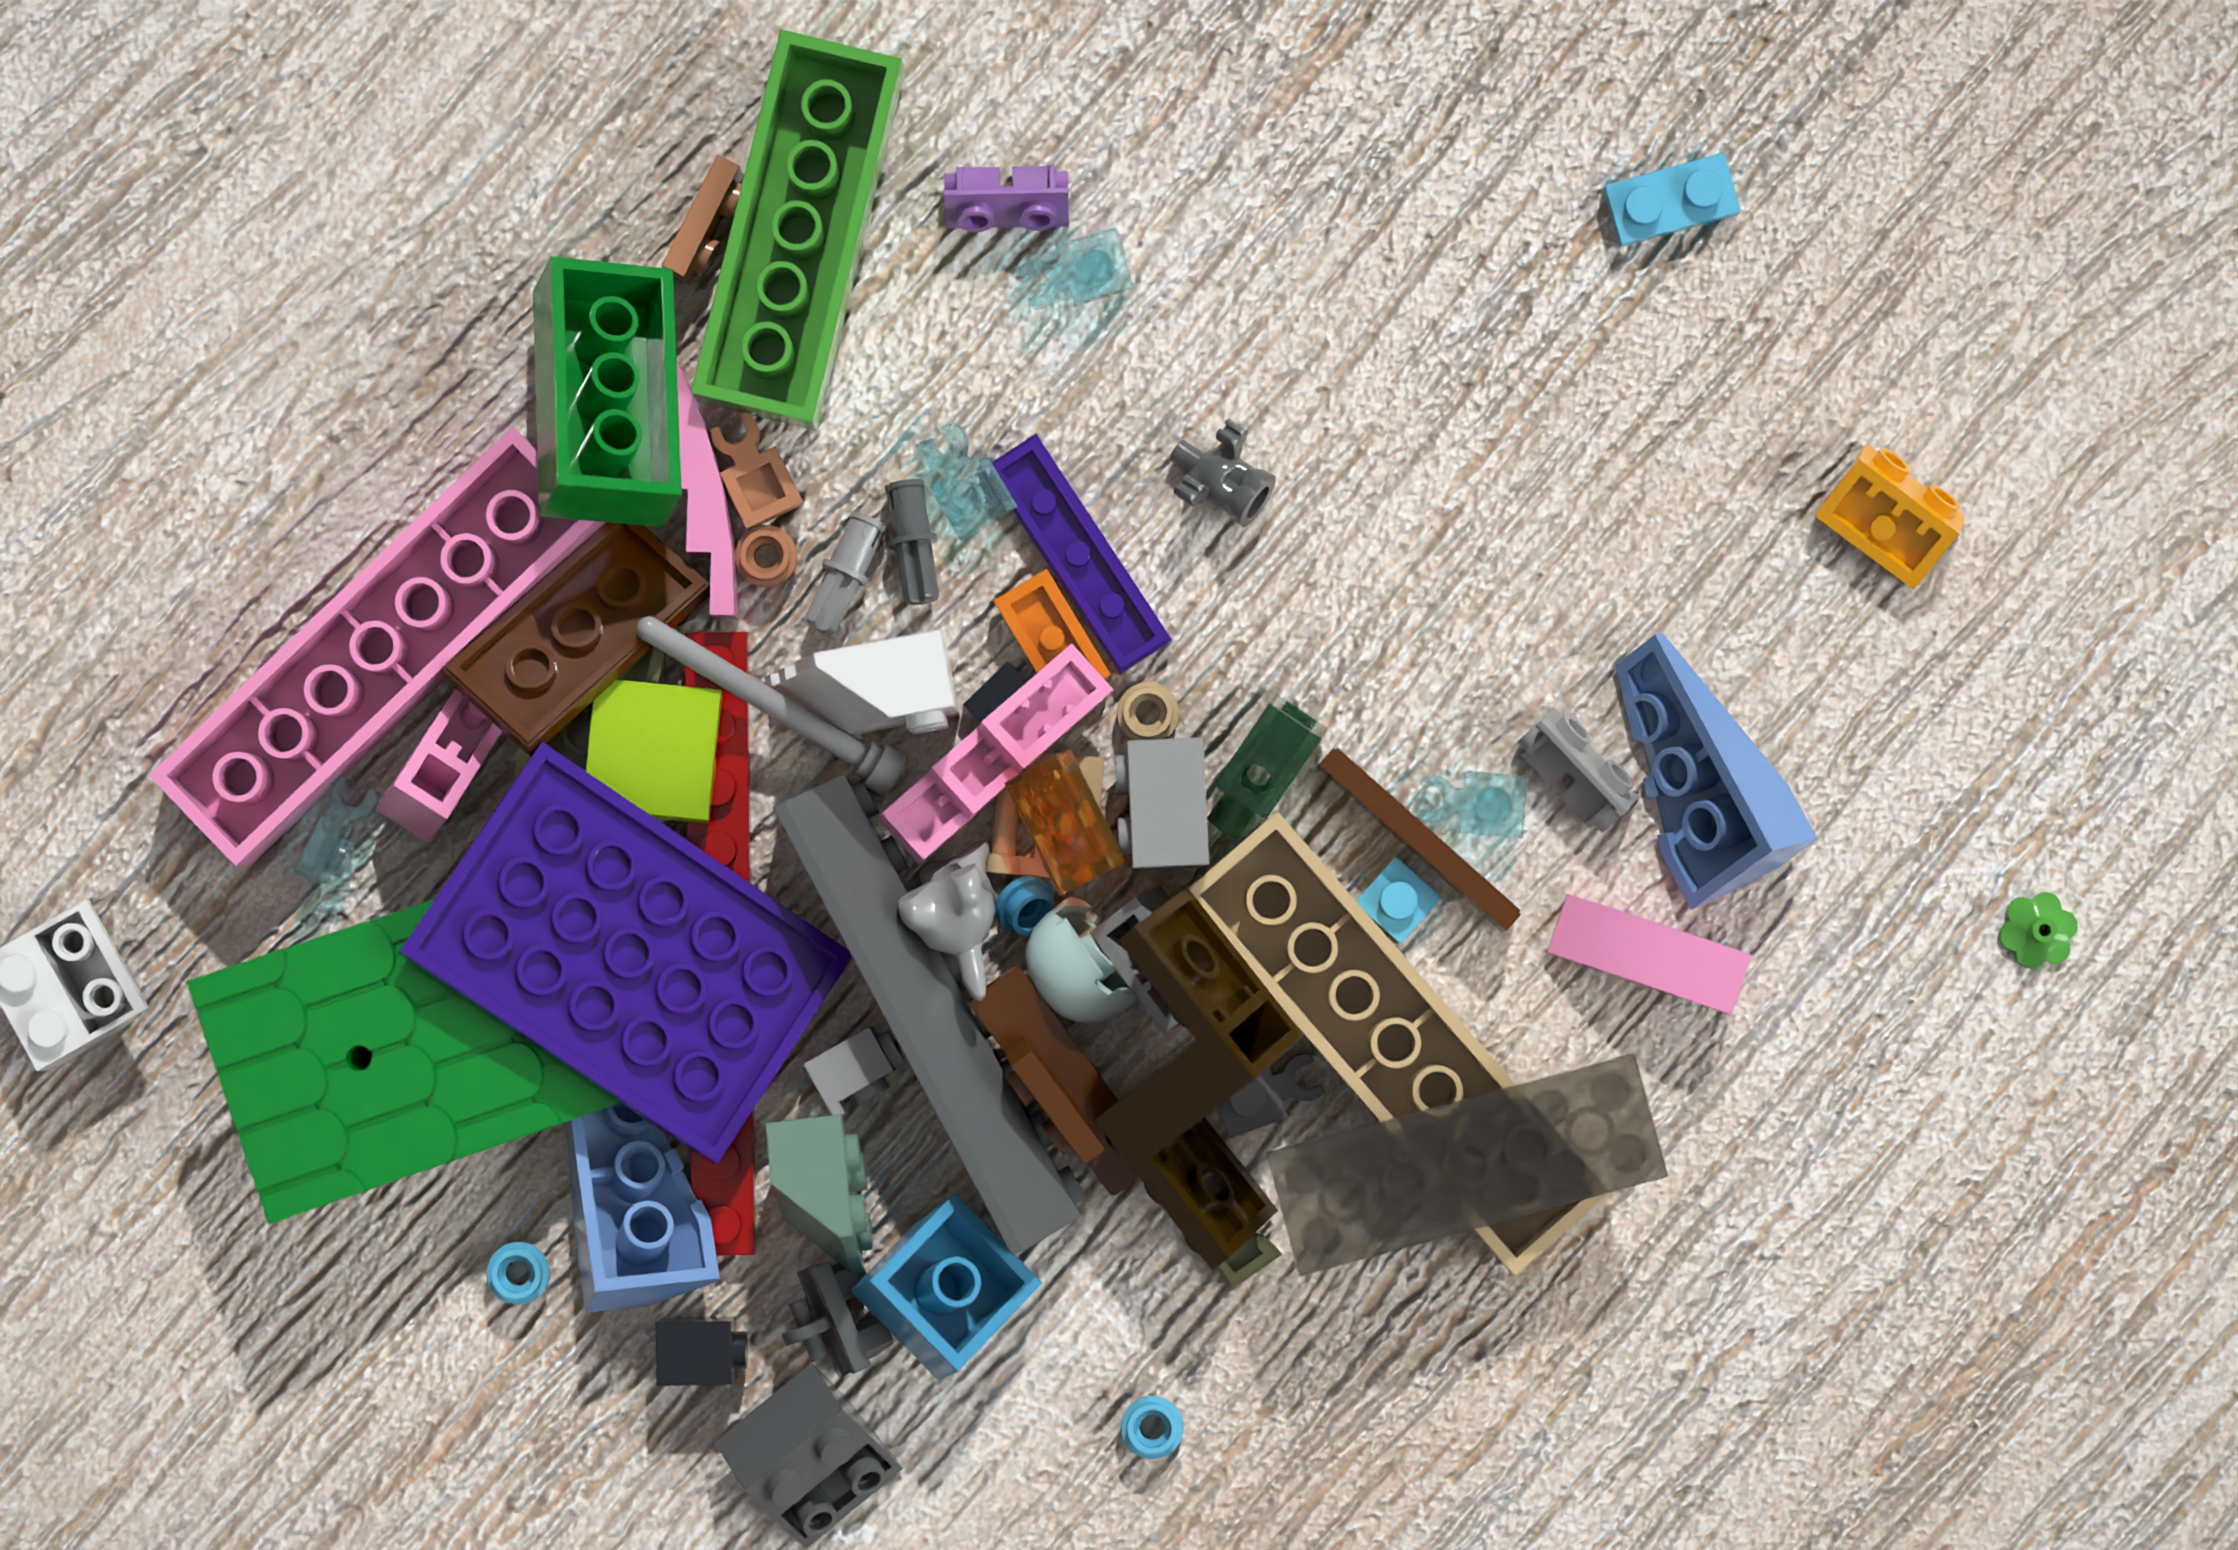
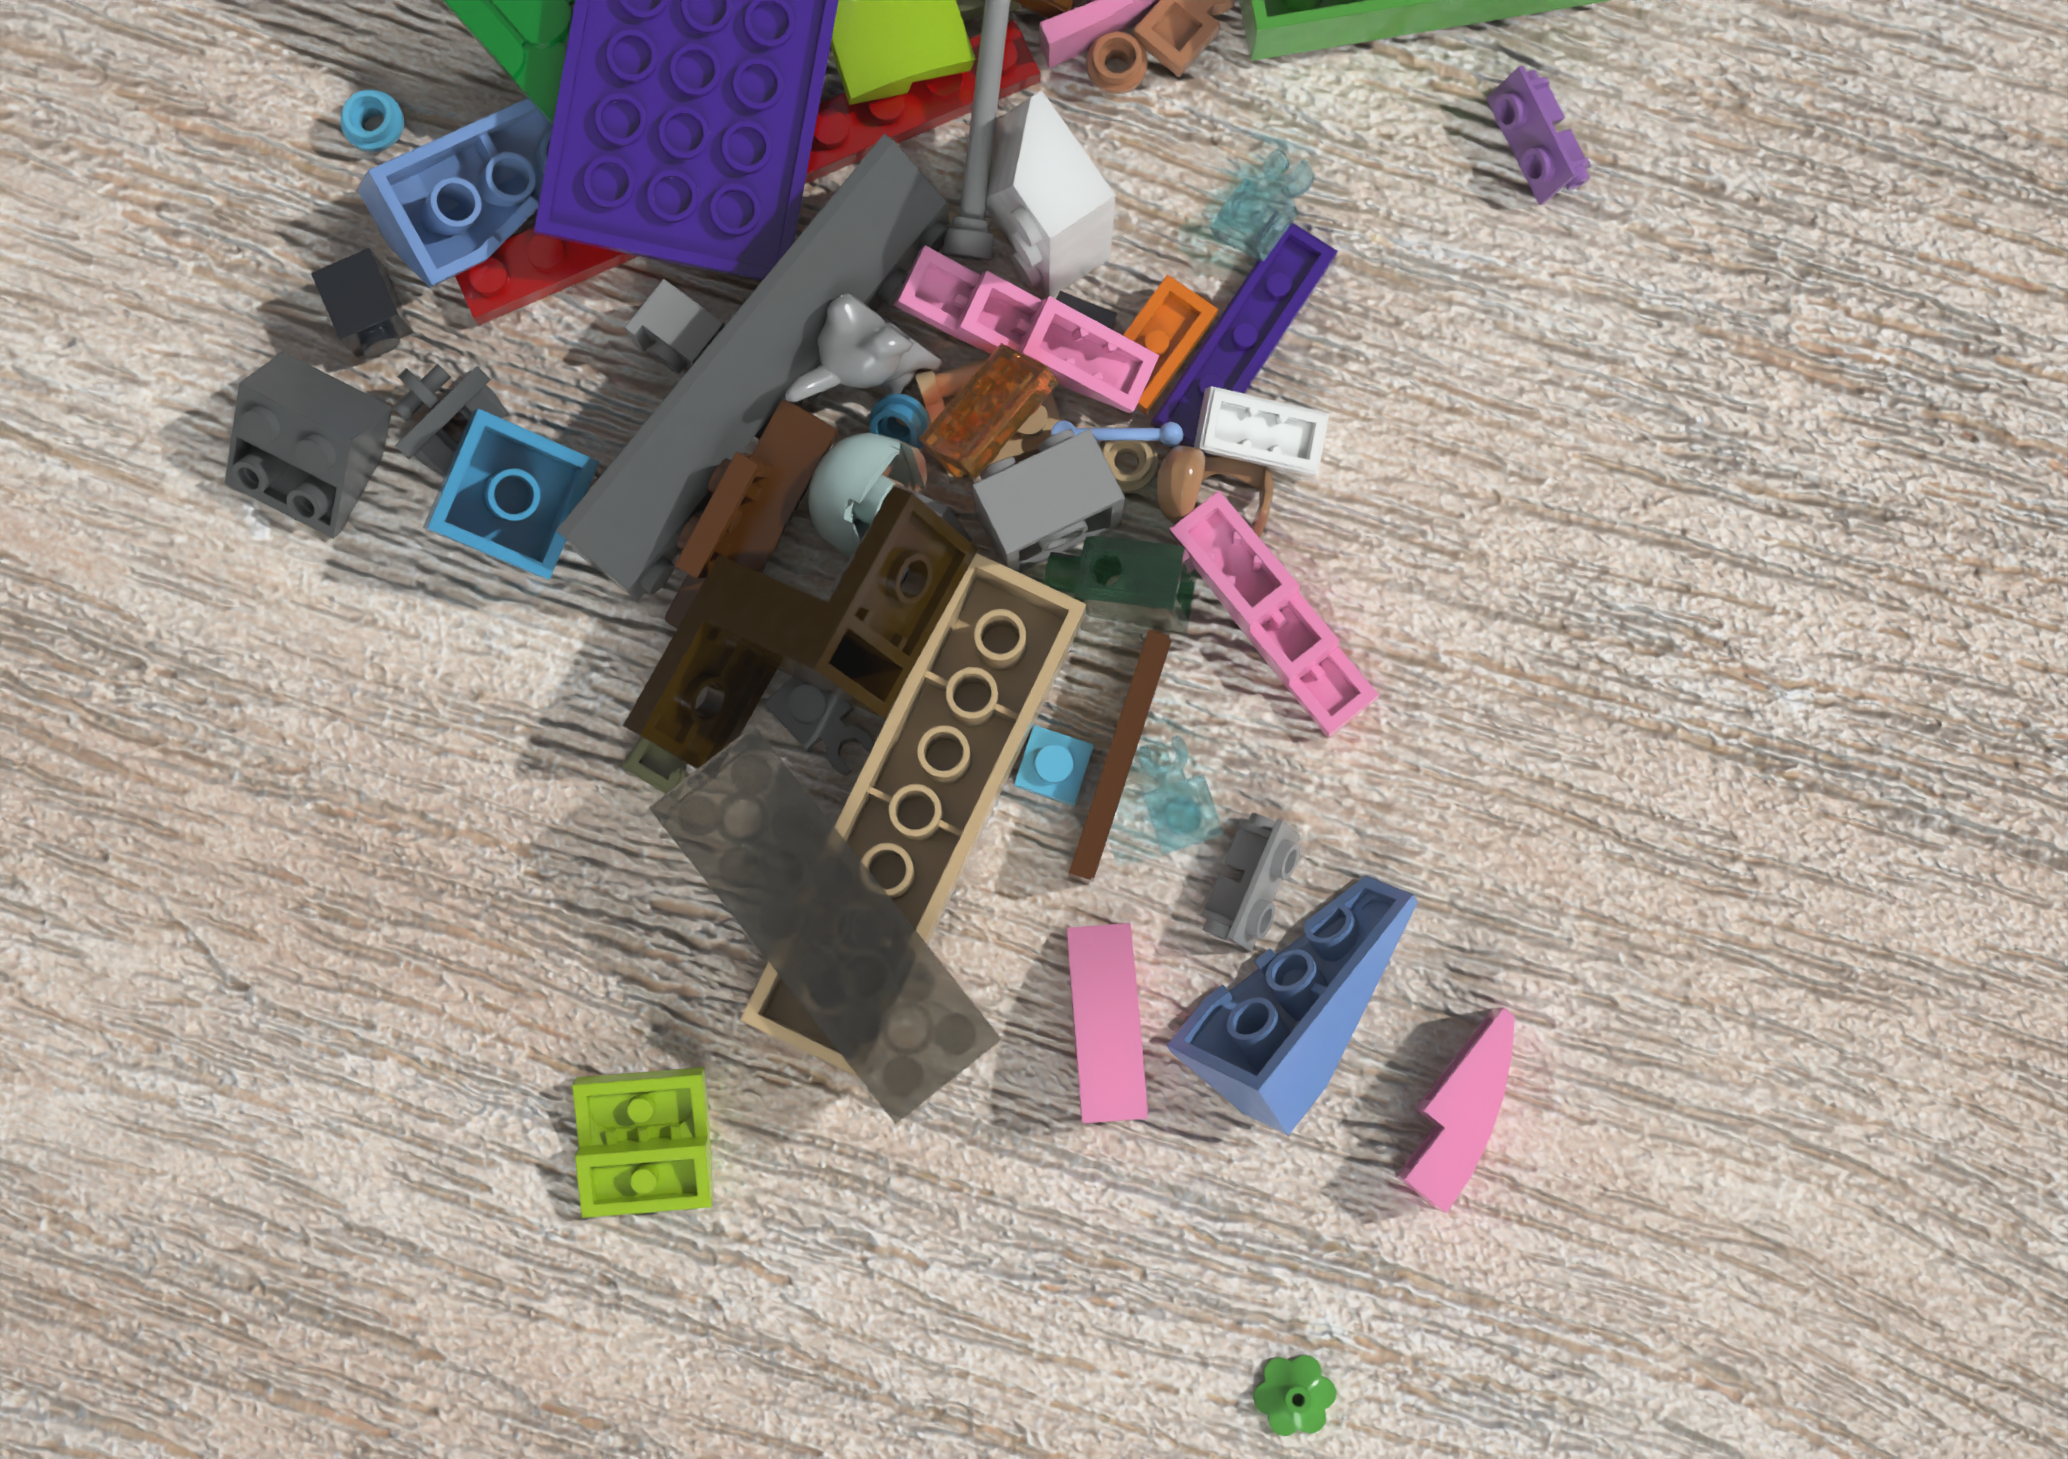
camera: 70 degrees right, 5 degrees down
(817, 1182) = (558, 338): sand green slope -> none
(845, 572) = (1134, 135): light grey axle -> none
(912, 541) = (1189, 183): dark grey axle -> none
(1088, 268) = (1508, 232): clear light blue plate -> none
(1104, 759) = (1169, 433): none -> light blue hinge
(1152, 1447) = (444, 745): medium azure plate -> none
(1175, 579) = (1261, 431): none -> white plate
(1194, 673) = (1187, 467): none -> medium nougat piece
(1223, 476) = (1376, 434): dark grey piece -> none
(1347, 643) = (1273, 614): none -> bright pink slope
(1575, 1409) = (643, 1142): none -> lime slope
(1671, 200) = (1826, 739): medium azure plate -> none
(1860, 674) = (1463, 1113): none -> bright pink slope
(1892, 515) = (1629, 1075): light orange bracket -> none

